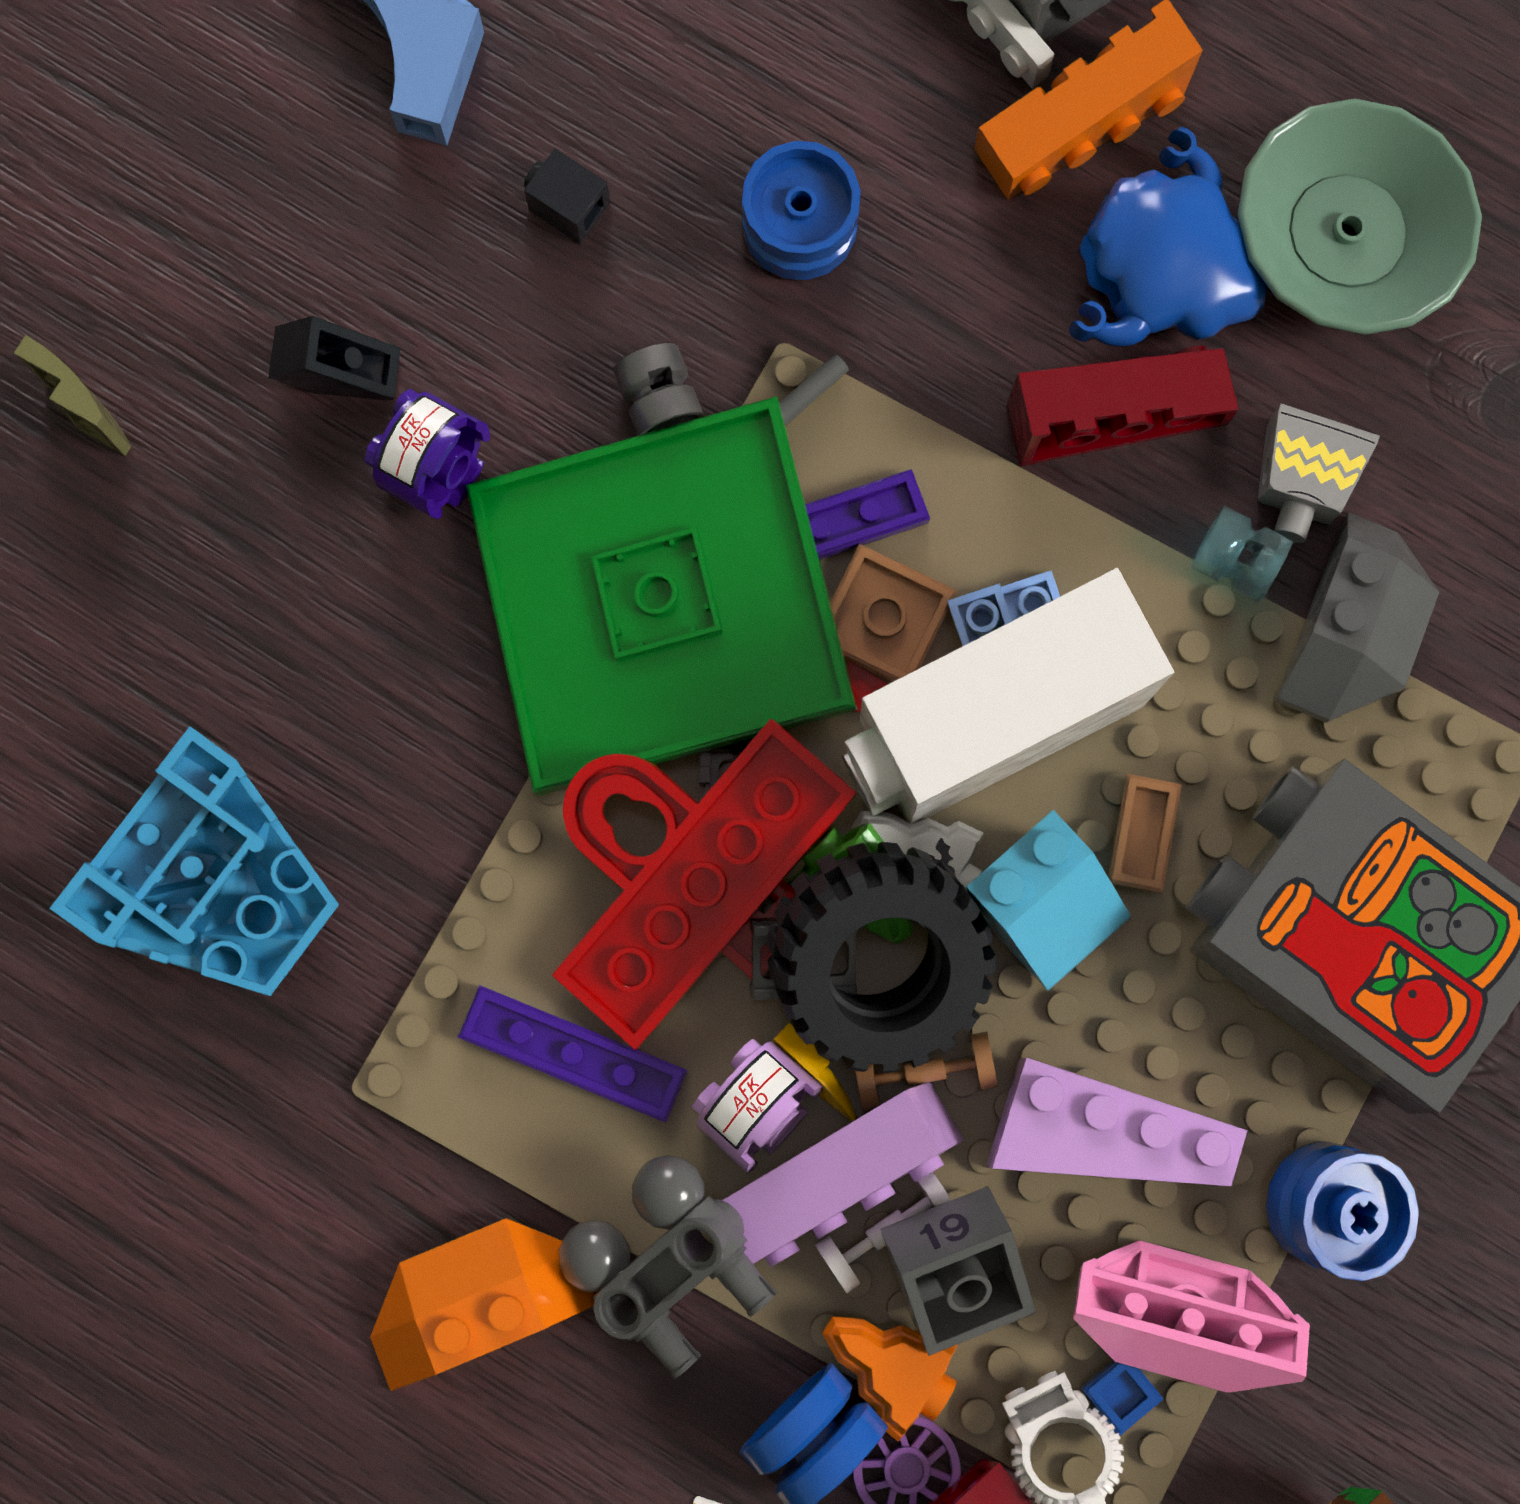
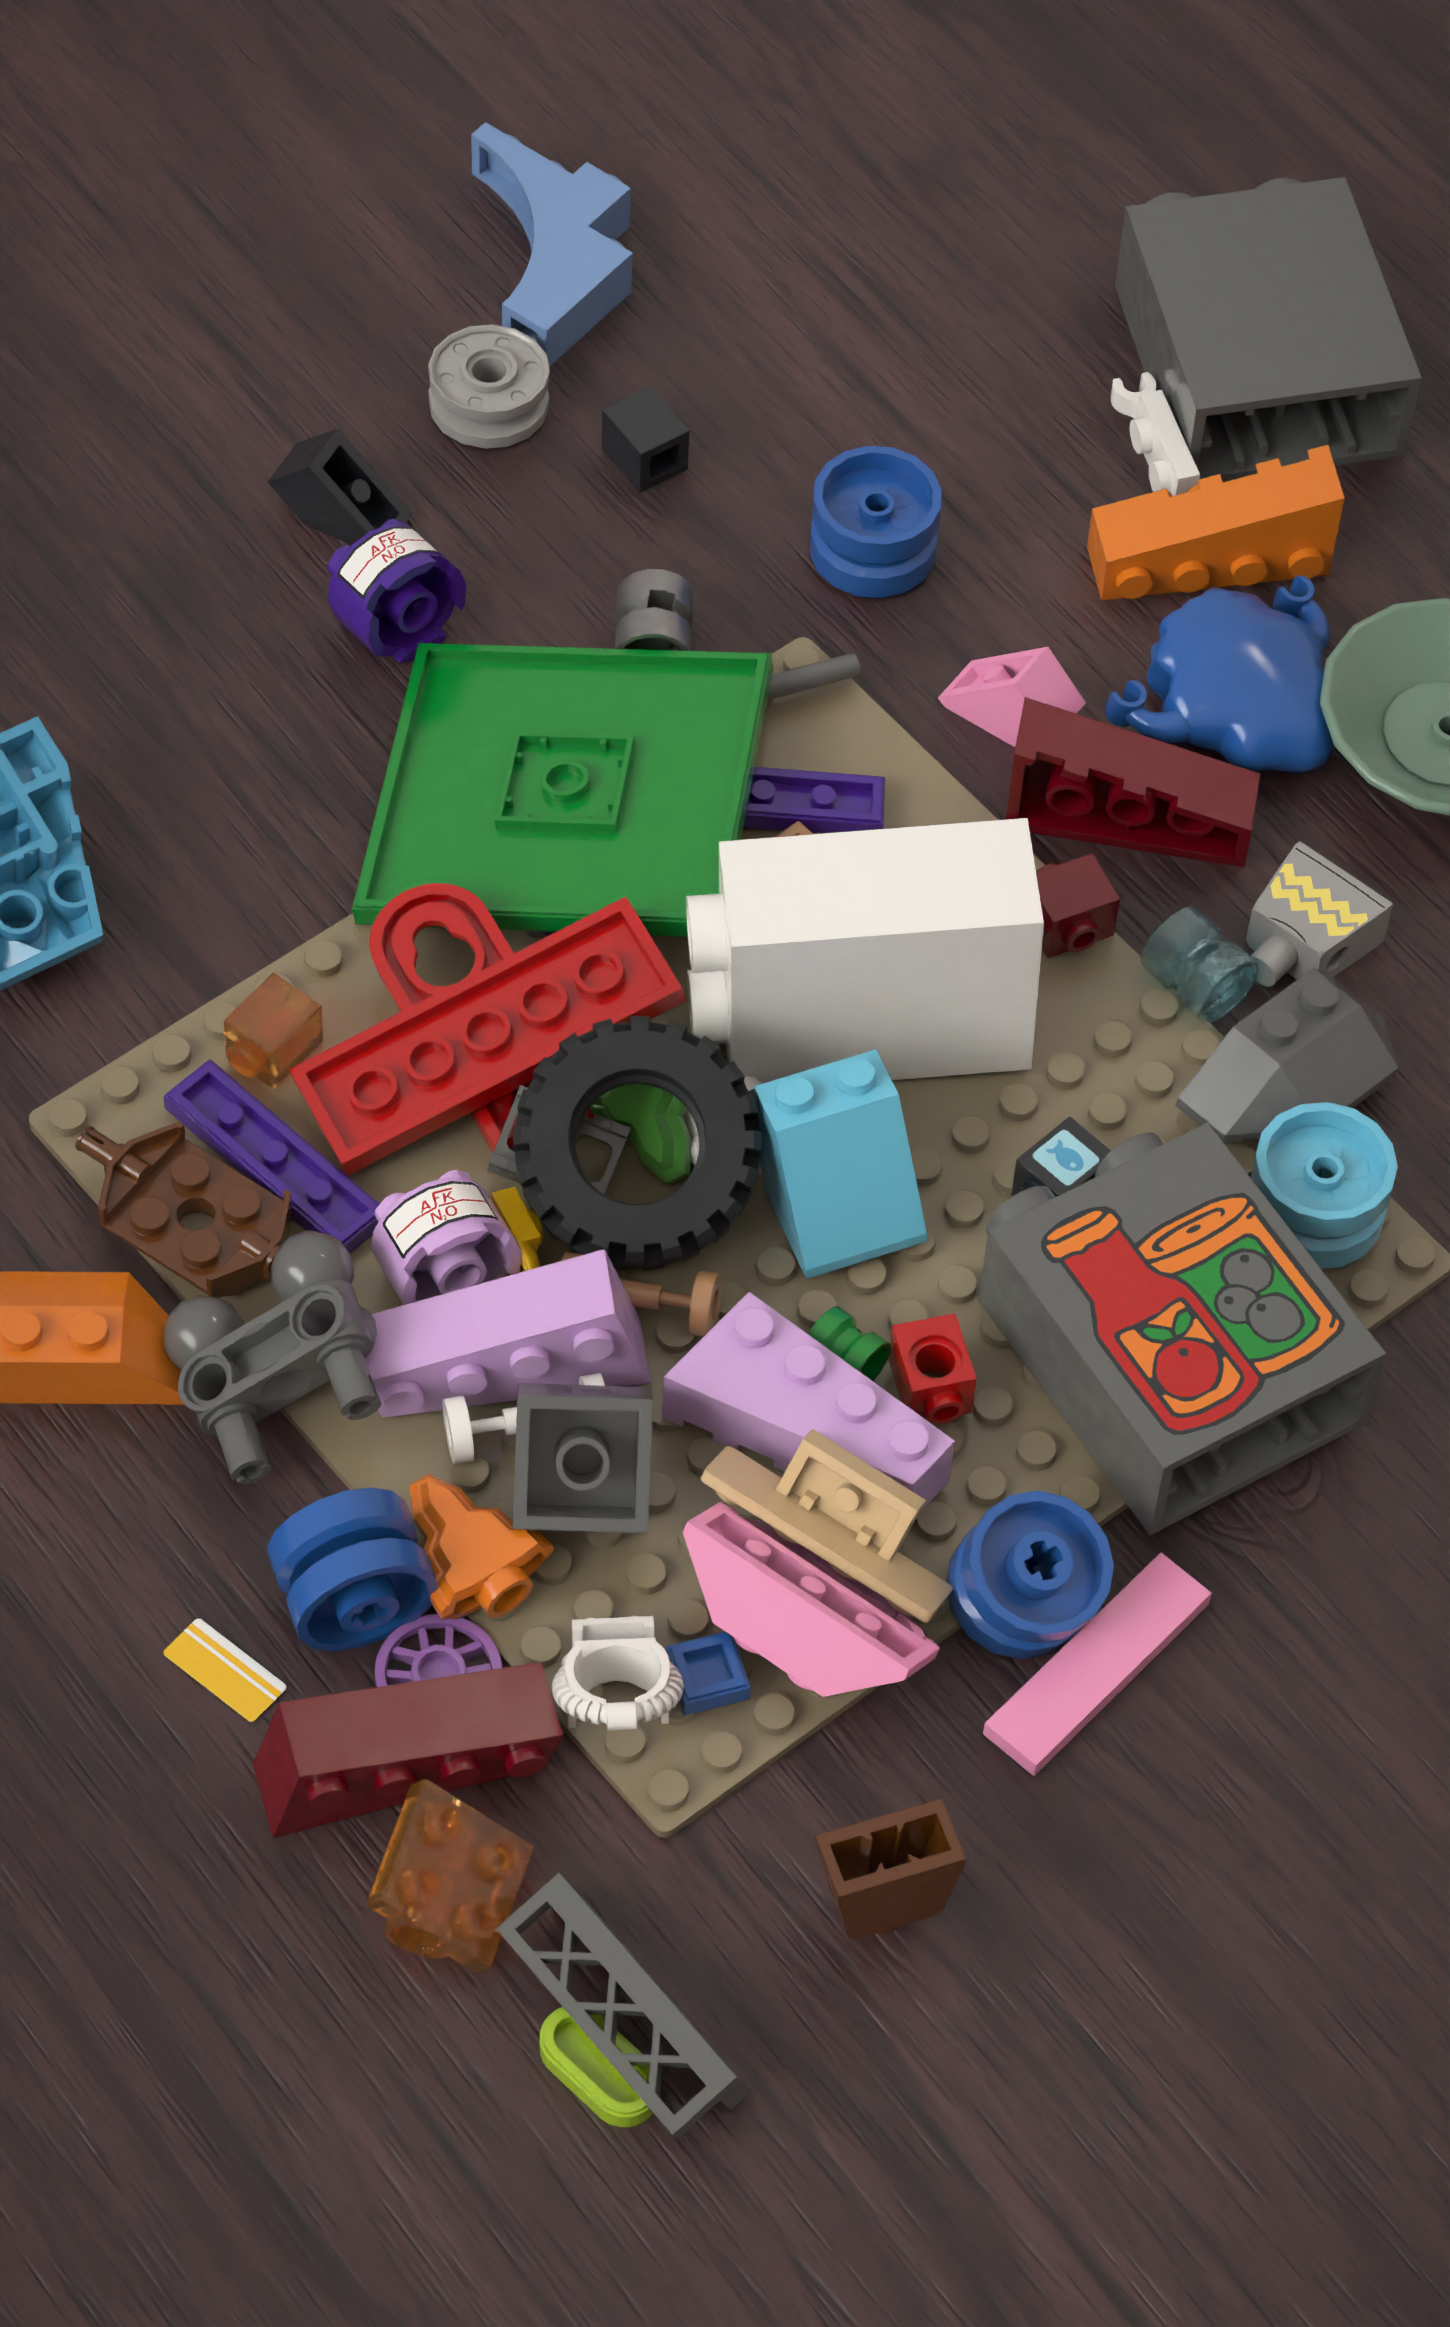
camera: 20 degrees right, 25 degrees down
(72, 395) = (67, 424): olive slope -> none
(403, 163) = (488, 386): none -> light grey wheel
(487, 1132) = (165, 1177): none -> reddish brown plate
(520, 942) = (272, 1031): none -> clear orange brick
(983, 340) = (994, 689): none -> bright pink slope
(1109, 1057) = (840, 1335): none -> green wheel
(1114, 539) = (1076, 905): none -> dark red brick
(1144, 833) = (976, 1171): medium nougat tile -> none
(1165, 1040) = (933, 1347): none -> red brick
(1176, 1235) = (839, 1513): none -> tan bracket
(1217, 816) = (1060, 1160): none -> brick
(1391, 1302) = (1097, 1664): none -> bright pink tile
(1440, 717) = (1327, 1178): none -> medium azure wheel

